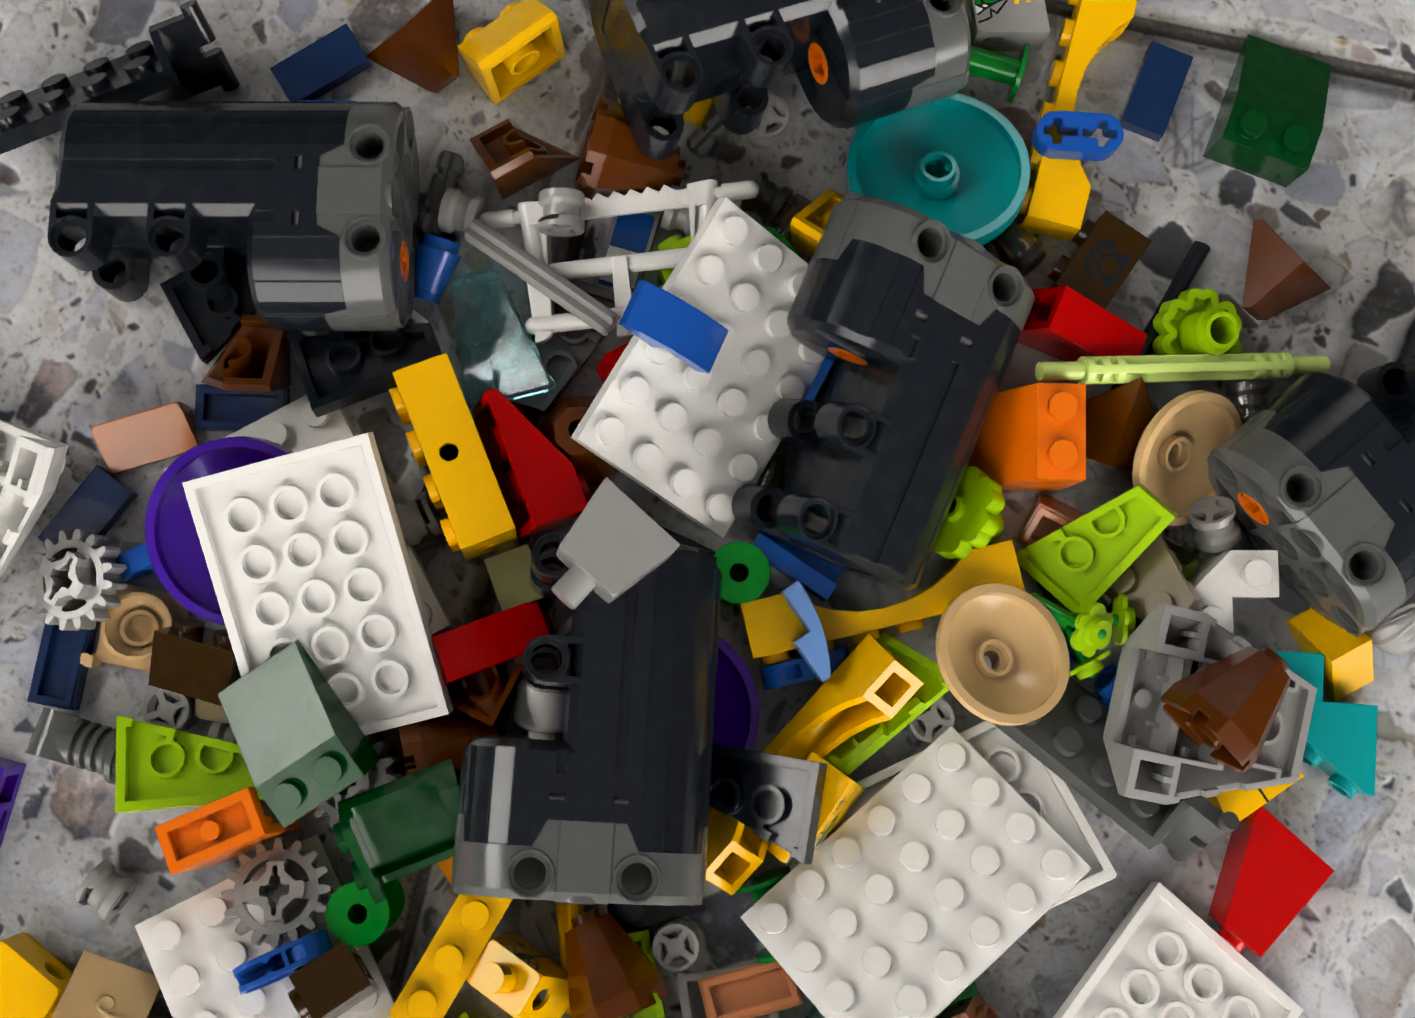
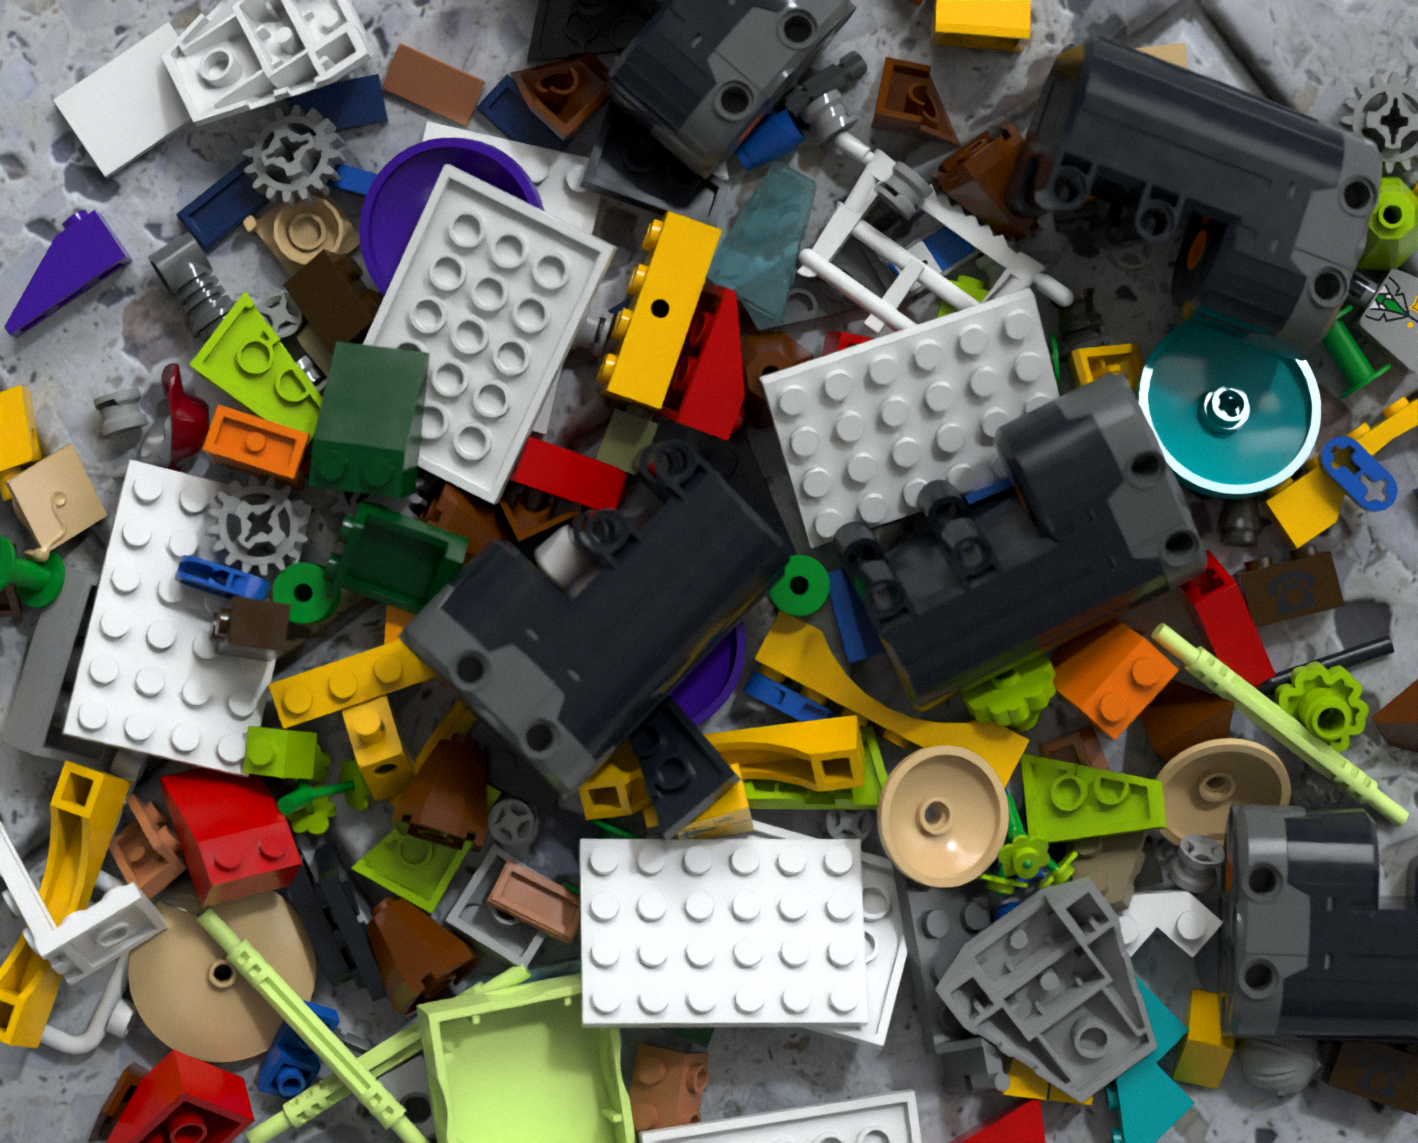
camera: 50 degrees right, 5 degrees up
(159, 887) = (178, 429): none -> dark red hair
(541, 277) = (844, 227): light grey axle -> none
(610, 548) = (718, 491): light grey torso -> none
(673, 325) = (906, 363): blue slope -> none
(811, 644) = (807, 685): medium blue slope -> none
(1230, 704) = (1073, 992): reddish brown cone -> none

